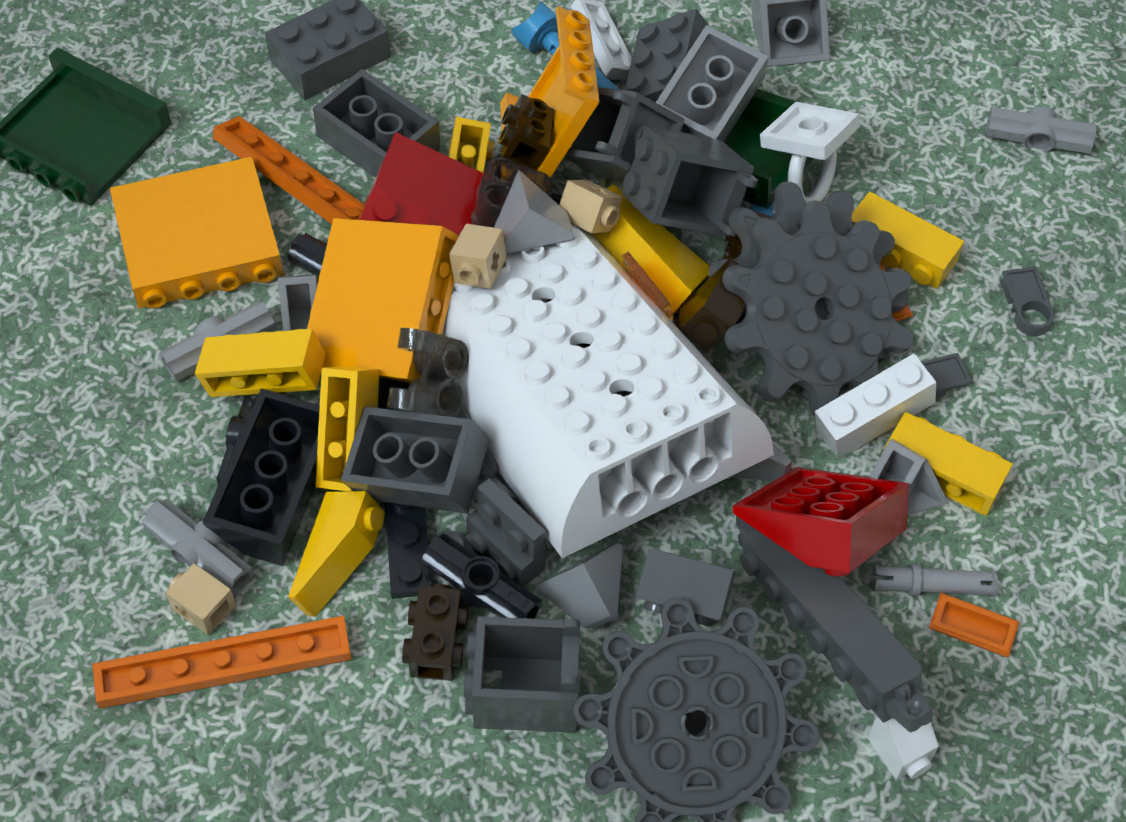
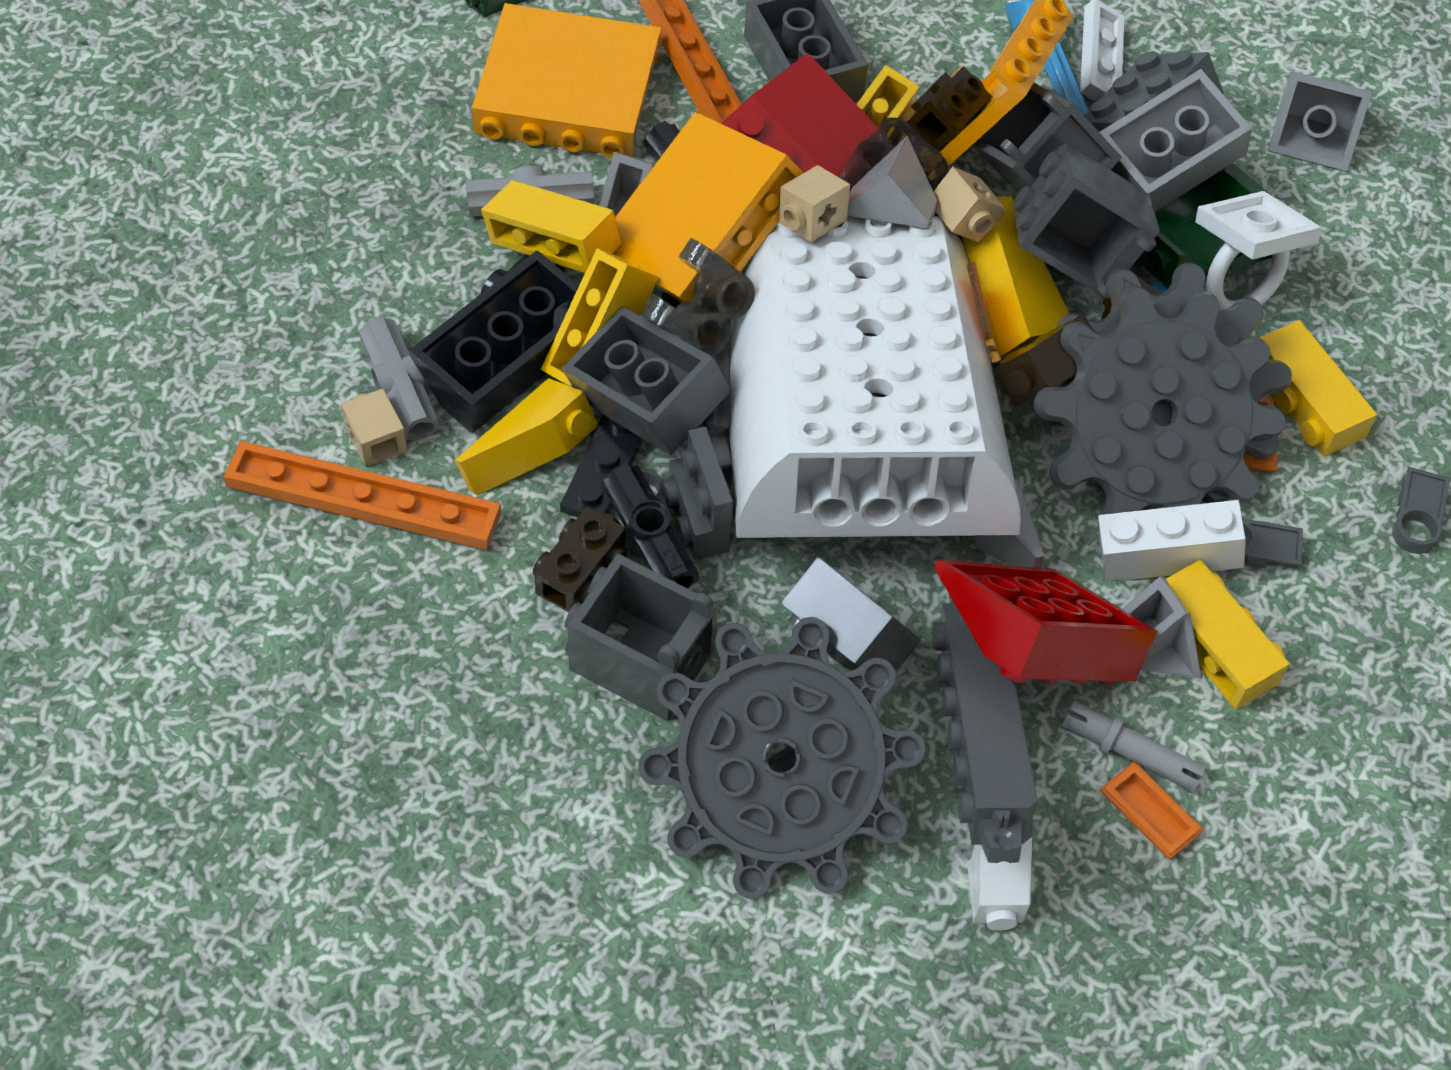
camera: 25 degrees right, 0 degrees up
(588, 587) = (758, 585): light grey slope -> none

